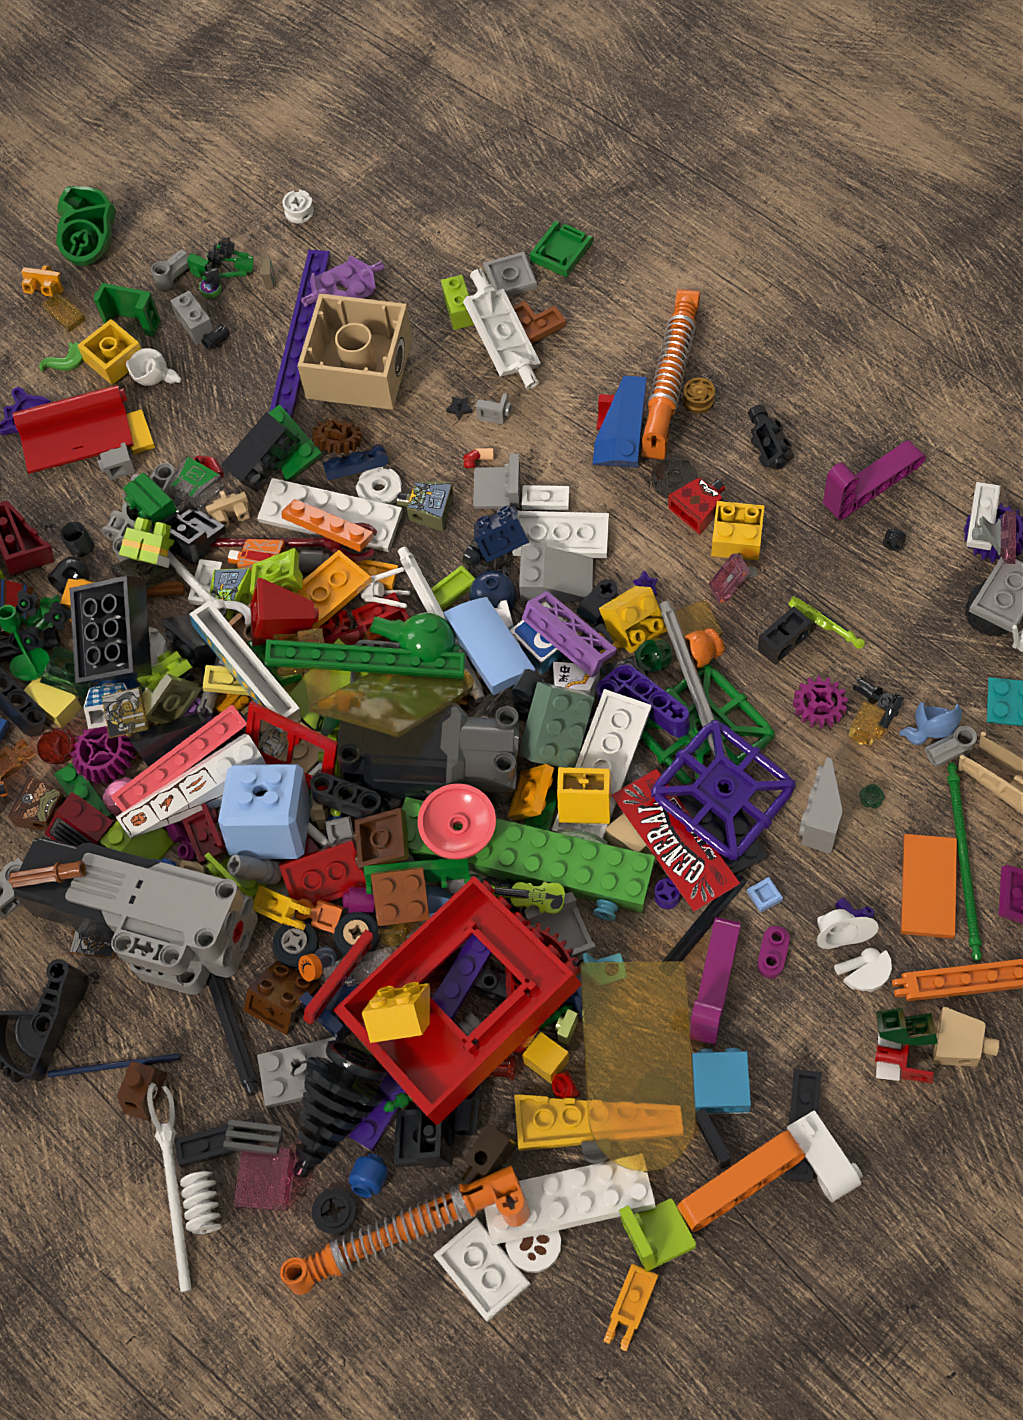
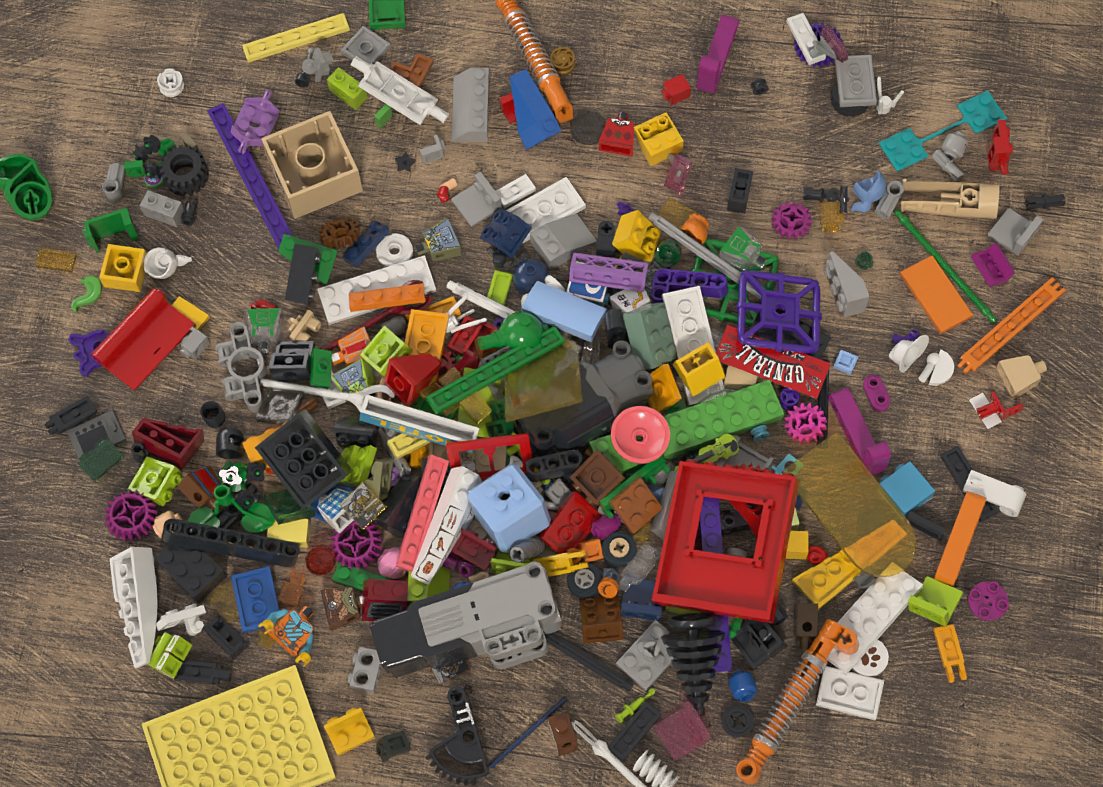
camera: 40 degrees left, 5 degrees up
(42, 280) = (22, 246): light orange hips -> none
(57, 872) = (404, 639): dark orange axle -> none
(147, 547) = (274, 388): lime hips -> none
(148, 499) = (249, 355): green brick -> none
(208, 556) = (320, 368): none -> green plate
(230, 1134) = (672, 703): dark grey tile -> none
(237, 280) = (185, 183): none -> black tyre
(240, 1115) = (629, 710): none -> lime piece
(338, 977) = (637, 579): red tile -> none
(398, 1012) = (701, 572): yellow slope -> none
(424, 270) = (302, 78): none -> black hinge
(448, 263) = (318, 64): none -> light grey hips
(451, 229) = (296, 37): none -> light yellow tile
(472, 348) = (383, 116): none -> bright green tile
(570, 389) = (471, 106): none -> light grey slope
(654, 941) = (805, 415): none -> dark pink gear
(731, 1280) = (996, 597): none -> magenta plate
(734, 699) = (742, 250): none -> torso
(769, 439) = (635, 70): black brick -> none
(797, 491) = (676, 89): none -> red brick
(825, 621) = (757, 166): lime piece -> none
(906, 1030) = (989, 387): dark green slope -> none

